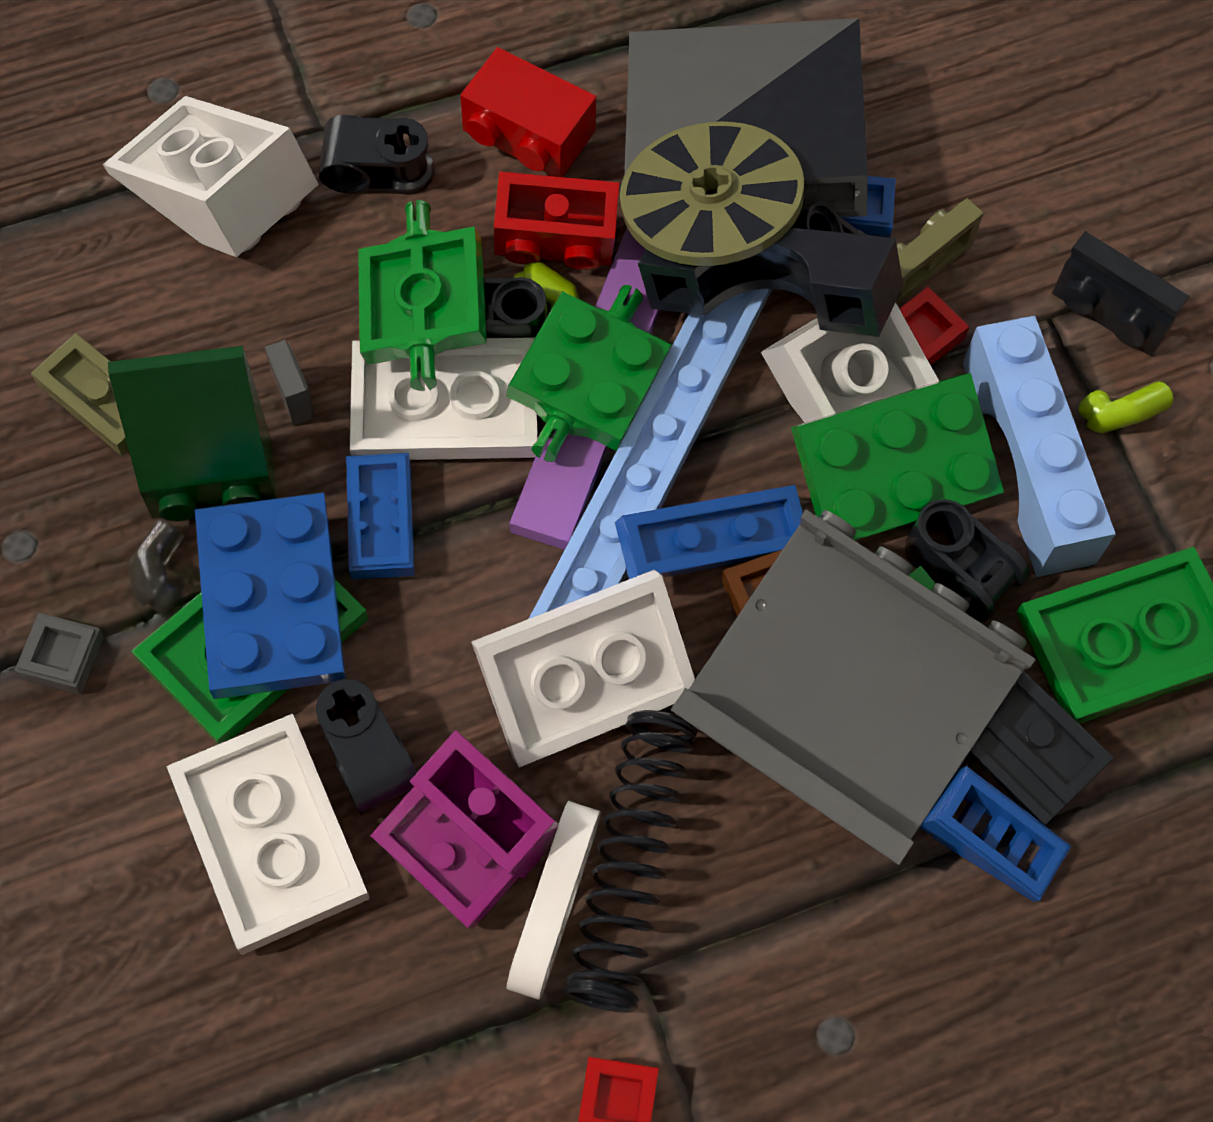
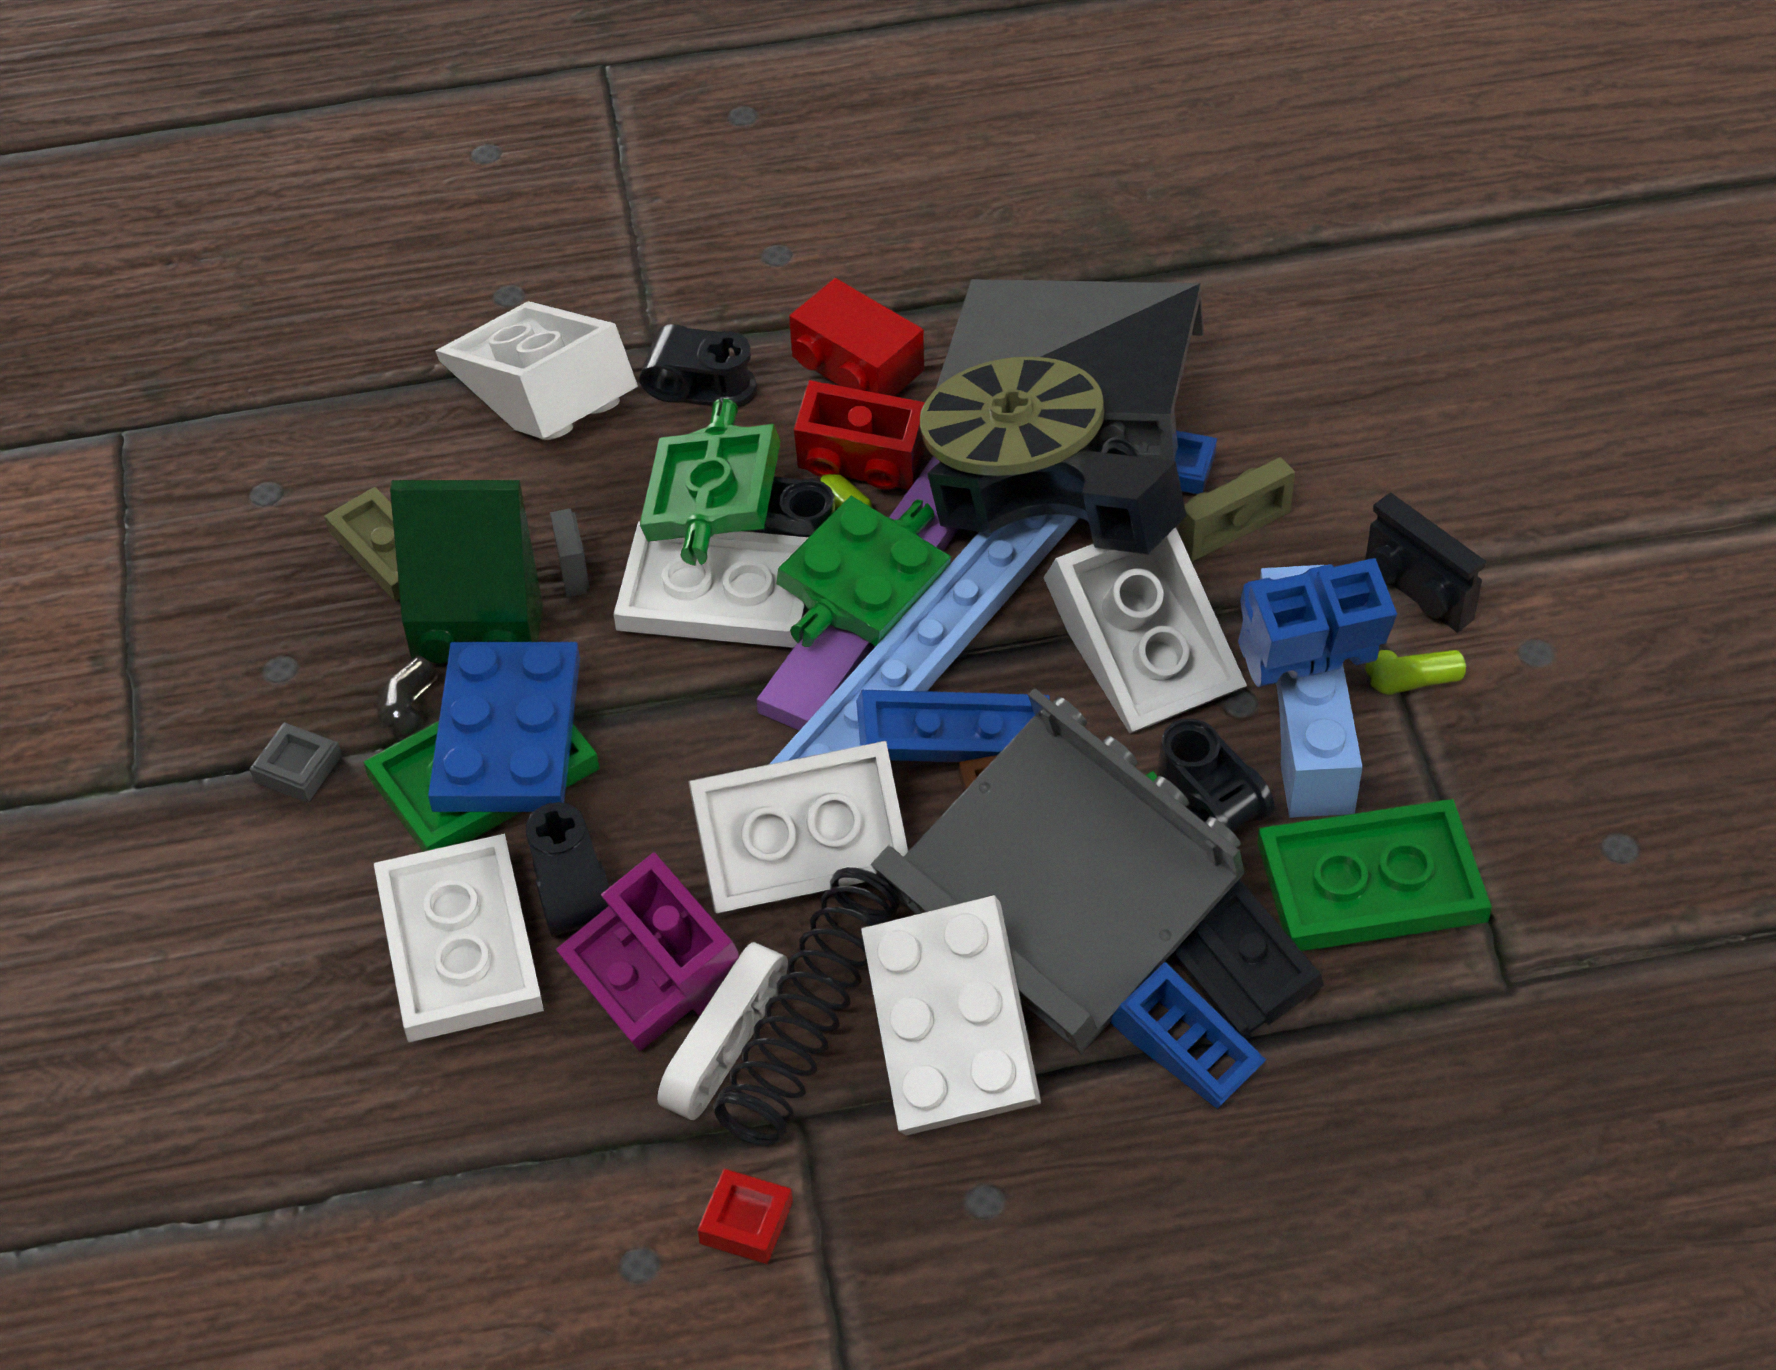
camera: 15 degrees right, 15 degrees down
(380, 516) = (631, 678): blue plate -> none
(777, 860) = (950, 1016): none -> white plate
(898, 455) = (1157, 671): green plate -> none
(933, 324) = (1223, 572): red plate -> none
(1059, 398) = (1314, 621): none -> blue hips

